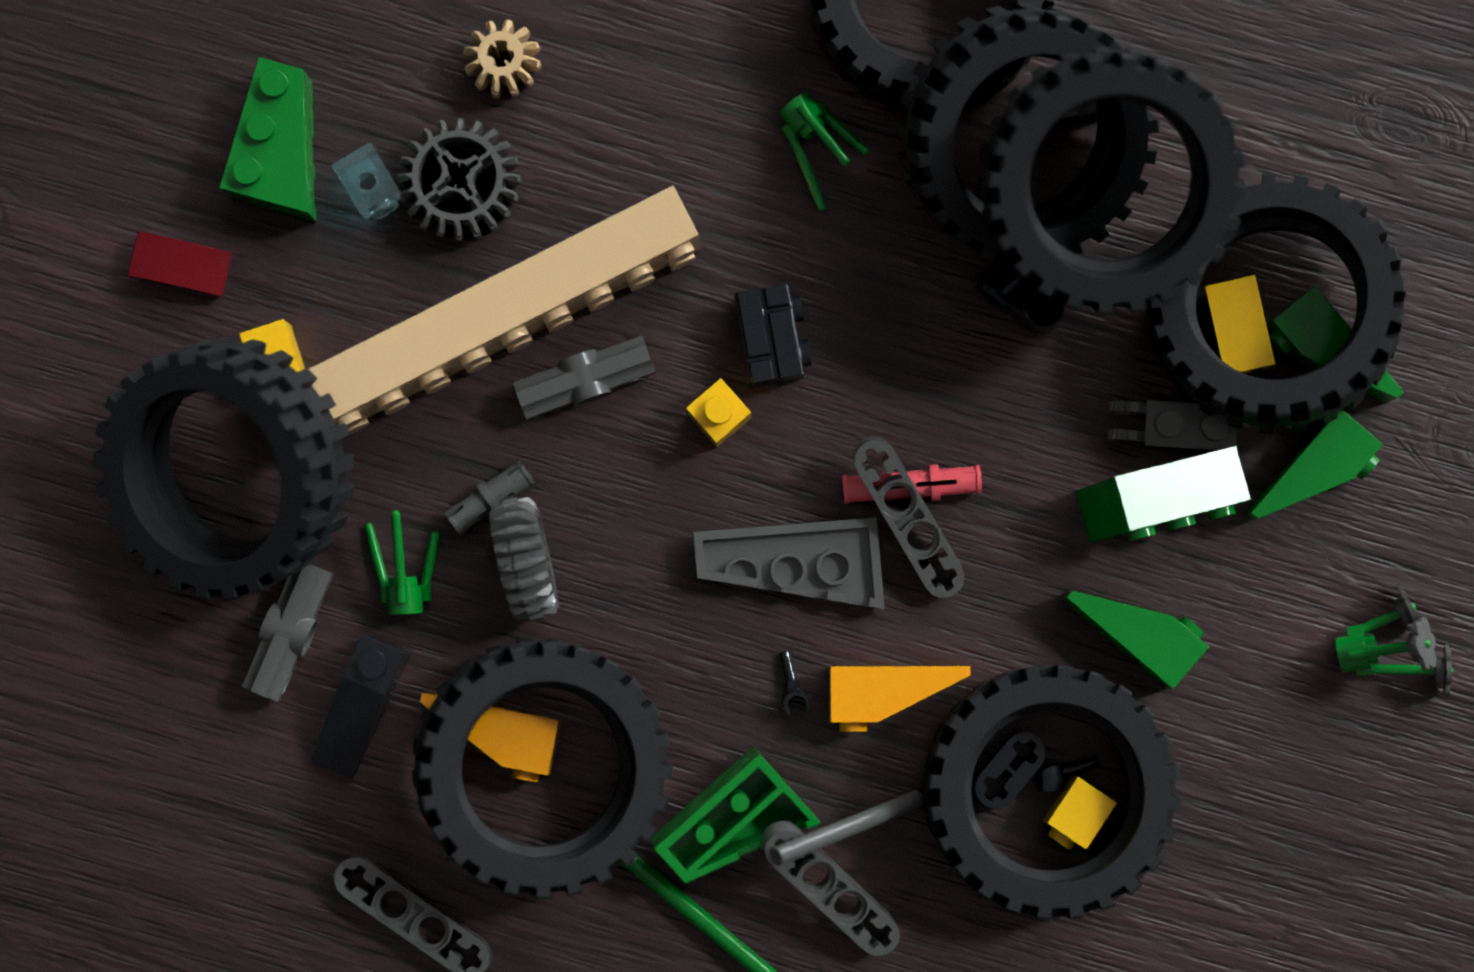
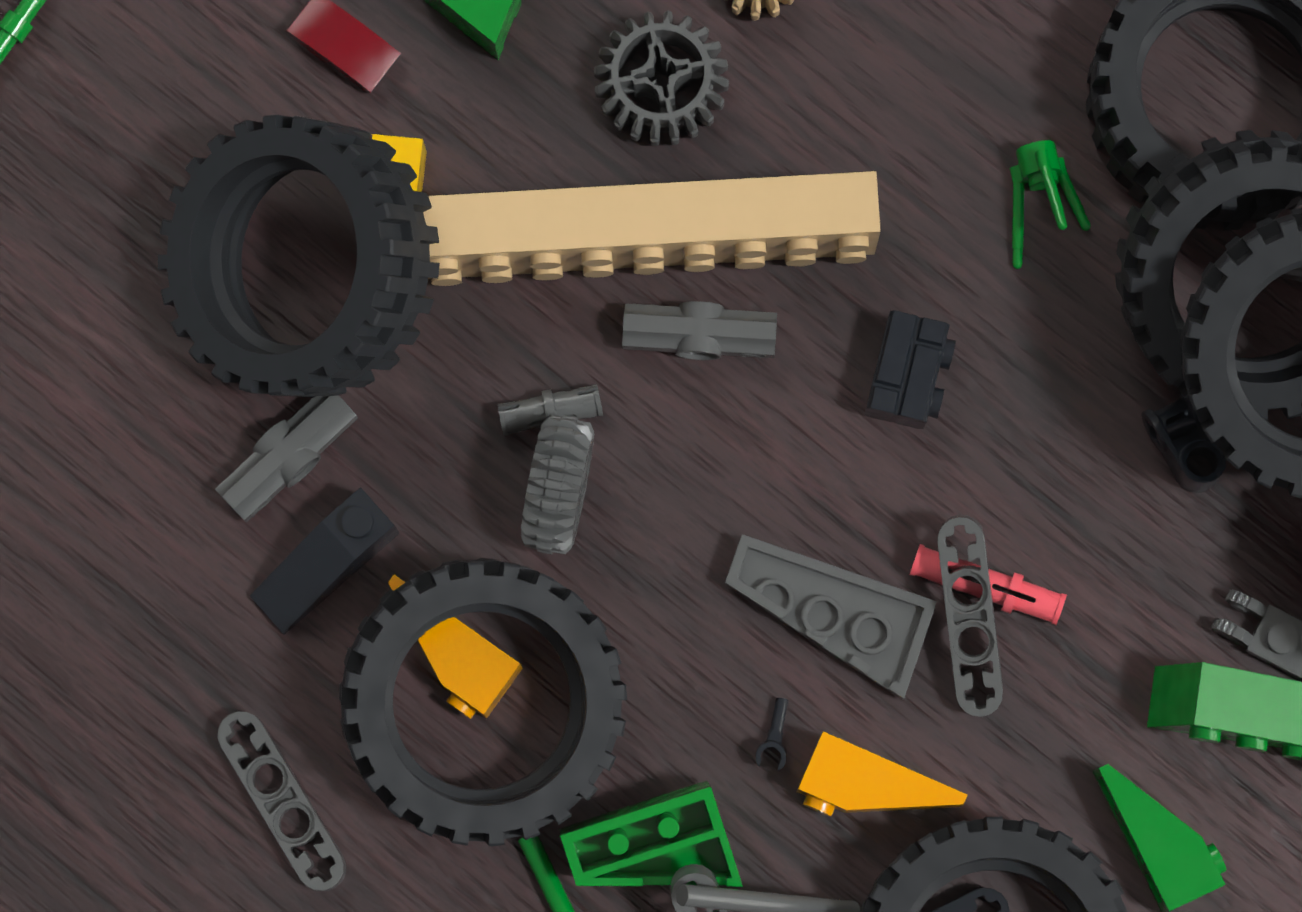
camera: 25 degrees right, 5 degrees down
(360, 165) = (563, 22): clear light blue brick -> none
(403, 593) = (420, 467): green plant -> none
(718, 412) = (821, 424): yellow brick -> none

